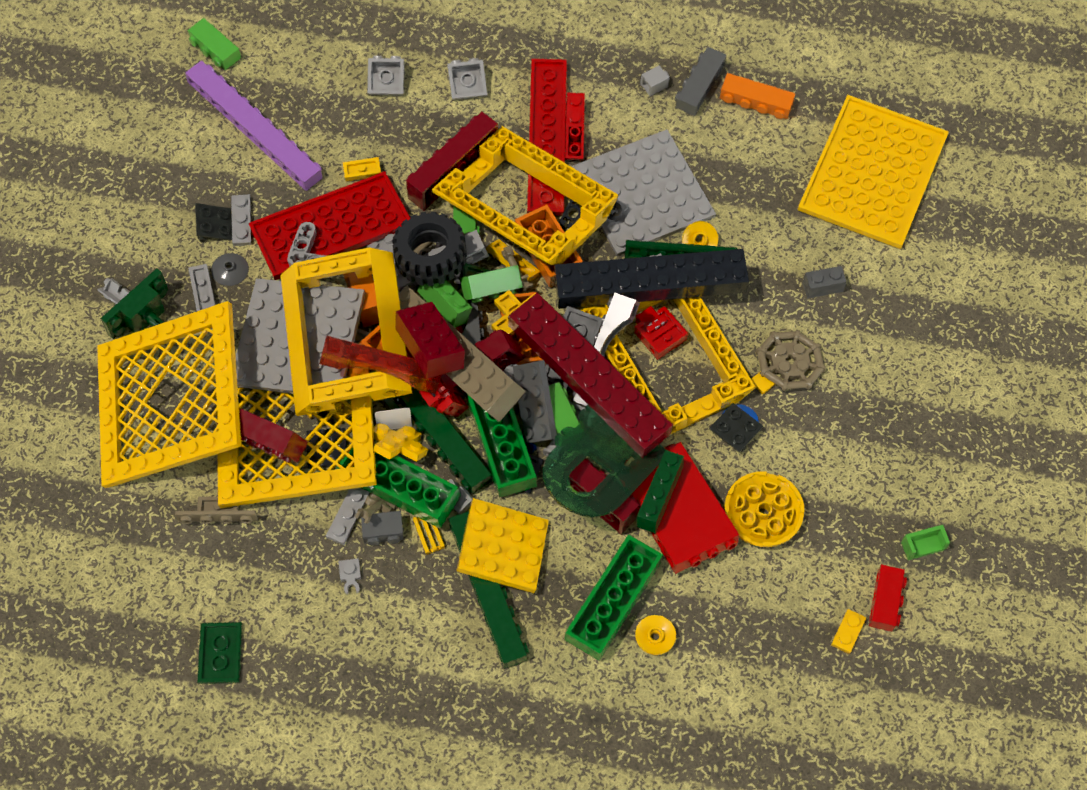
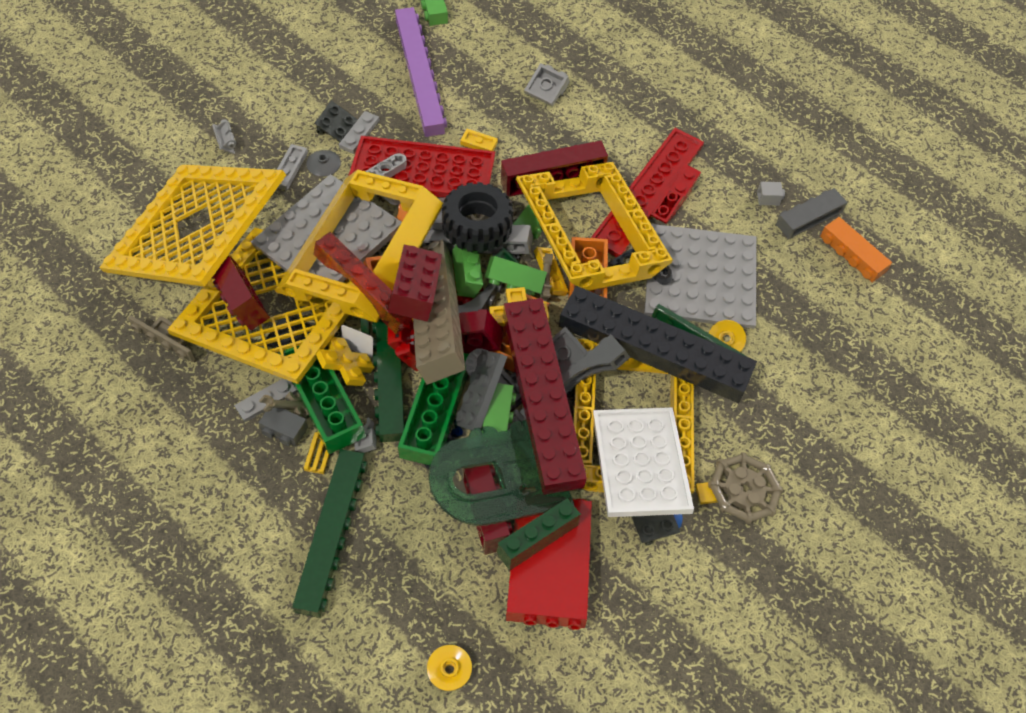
camera: 30 degrees right, 5 degrees down
(138, 308) = (229, 148): dark green brick -> none
(219, 653) = (78, 451): dark green tile -> none
(350, 572) = (229, 447): light grey plate -> none
(467, 79) = (610, 117): light grey plate -> none
(503, 545) = (368, 500): yellow plate -> none
(613, 597) = (433, 607): green brick -> none
(659, 331) = (638, 391): red piece -> none
(701, 386) = (641, 462): none -> white plate
(767, 492) = (642, 593): yellow brick -> none
(824, 282) = (821, 435): dark grey brick -> none
(873, 171) = (929, 366): yellow plate -> none

